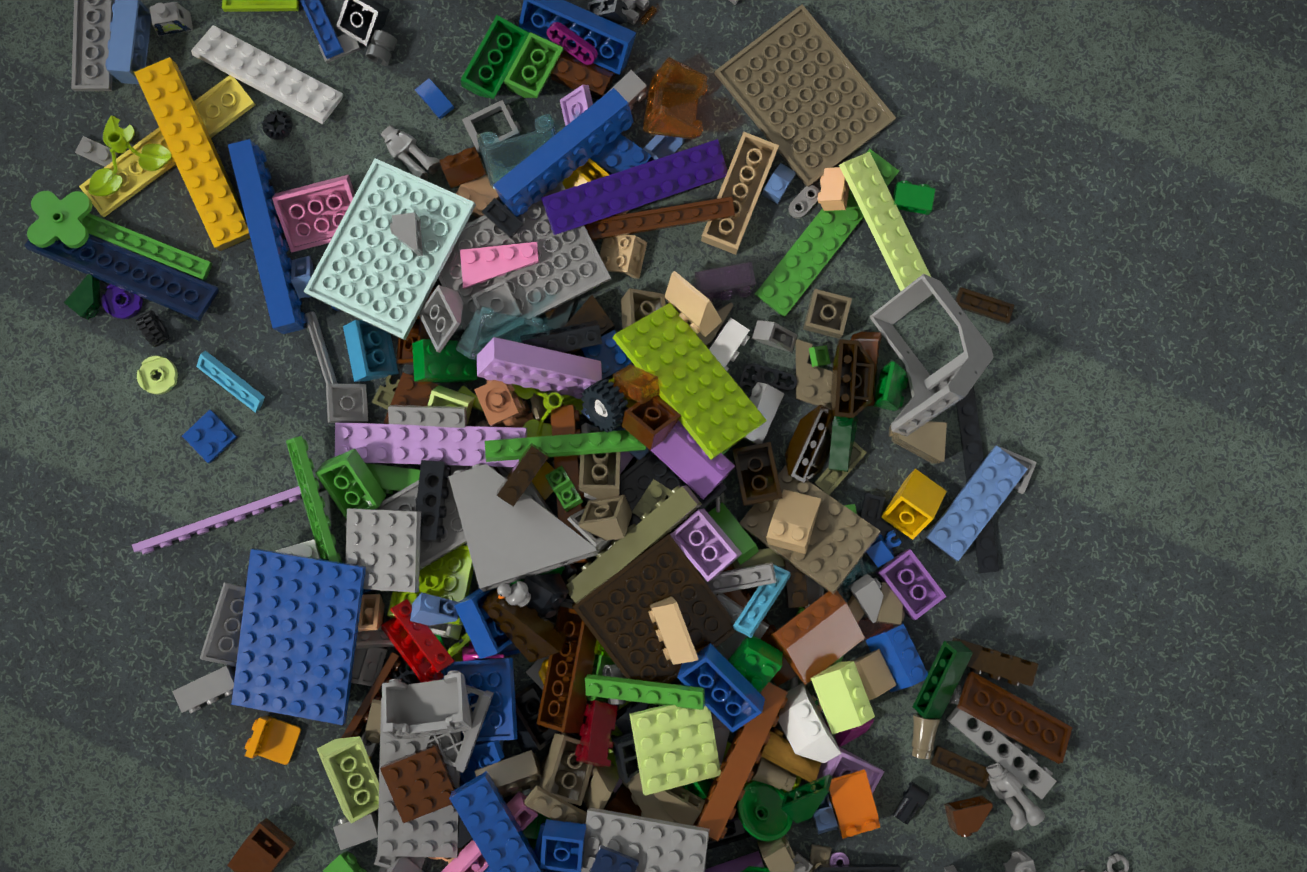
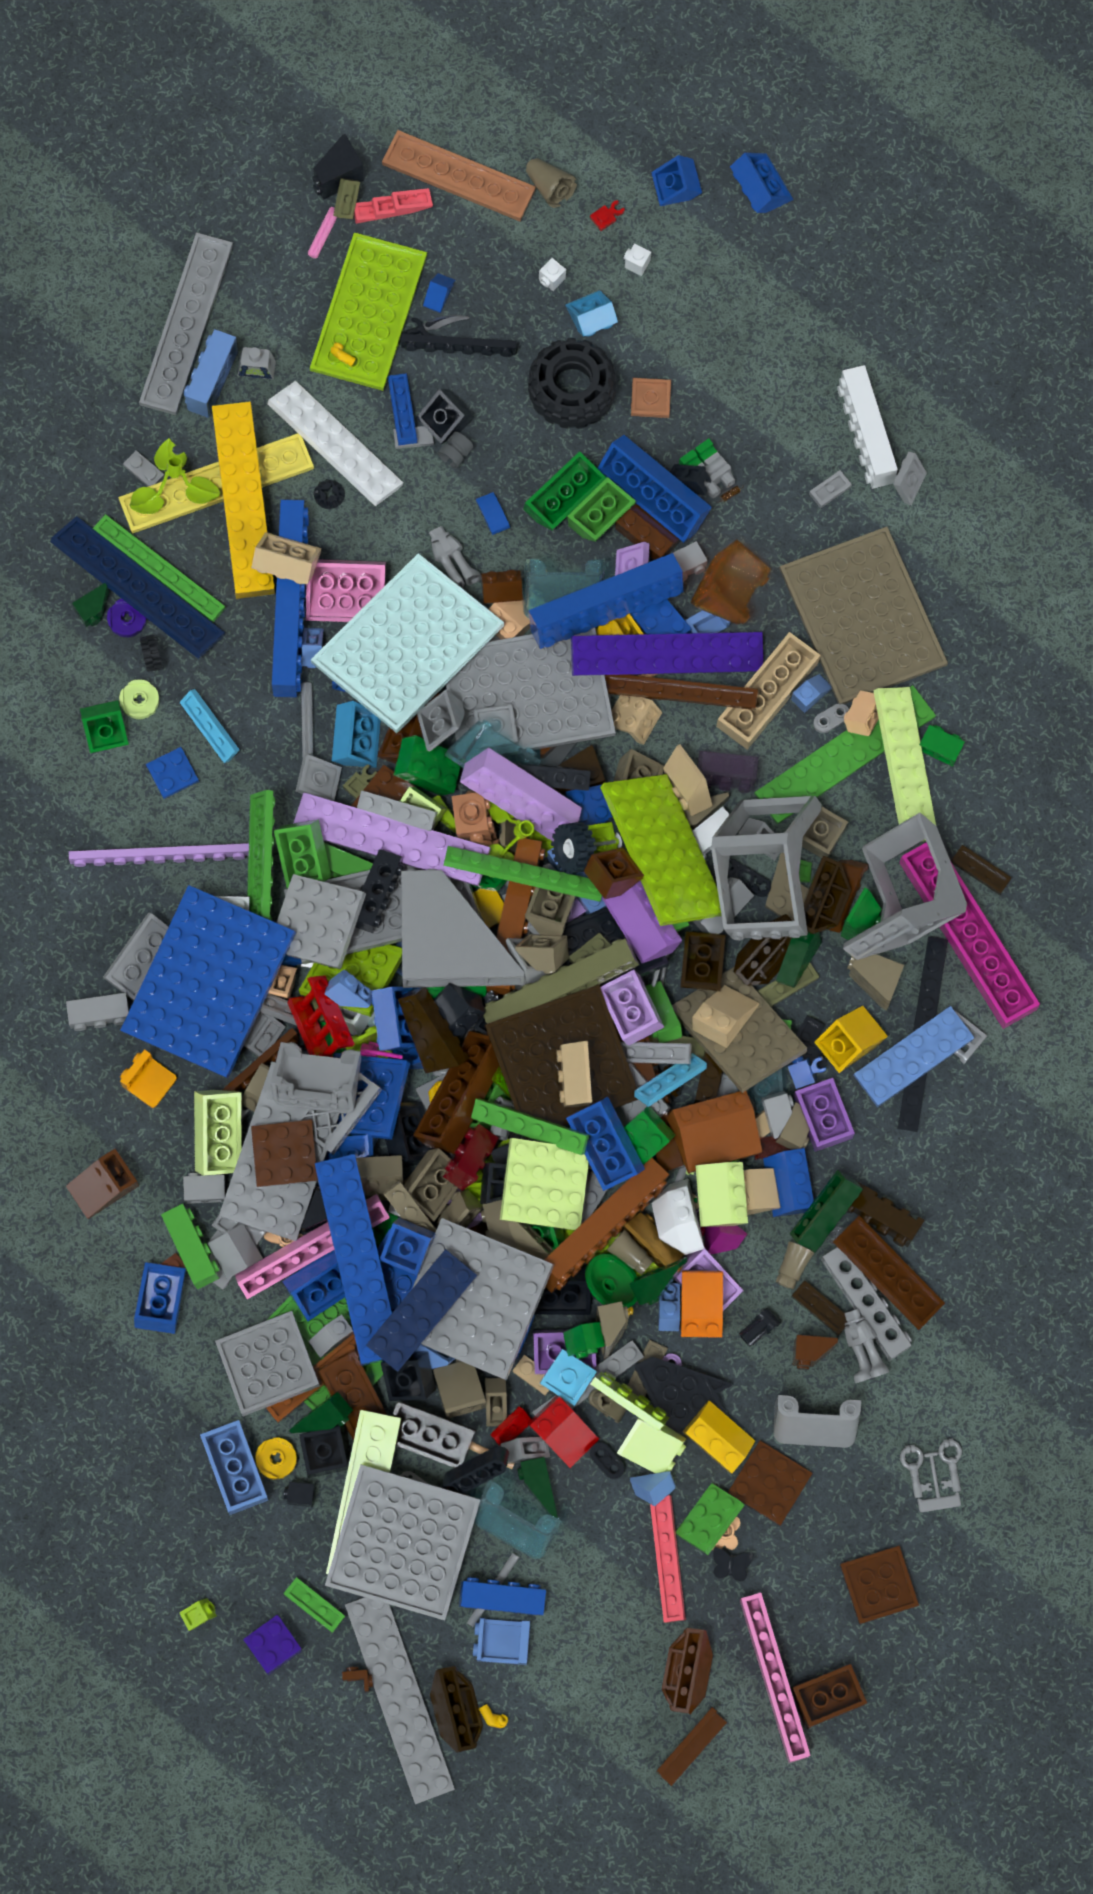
camera: 15 degrees right, 10 degrees down
(59, 219) = (94, 523): bright green plant -> none
(131, 411) = (104, 726): none -> green slope
(247, 201) = (285, 558): none -> tan slope
(408, 231) = (431, 631): light grey slope -> none
(470, 120) = (519, 546): light grey window -> none
(489, 262) = (504, 684): bright pink wing -> none
(502, 218) = (526, 645): black plate -> none
(514, 595) = (433, 996): light grey animal -> none
(522, 474) = (475, 884): dark brown brick -> none
(564, 488) = (509, 915): bright green slope -> none
(570, 35) = (653, 500): magenta beam -> none
(636, 384) = (610, 835): clear orange brick -> none
(812, 345) = (790, 843): none -> light grey window
(1002, 379) = (975, 945): none -> dark pink brick

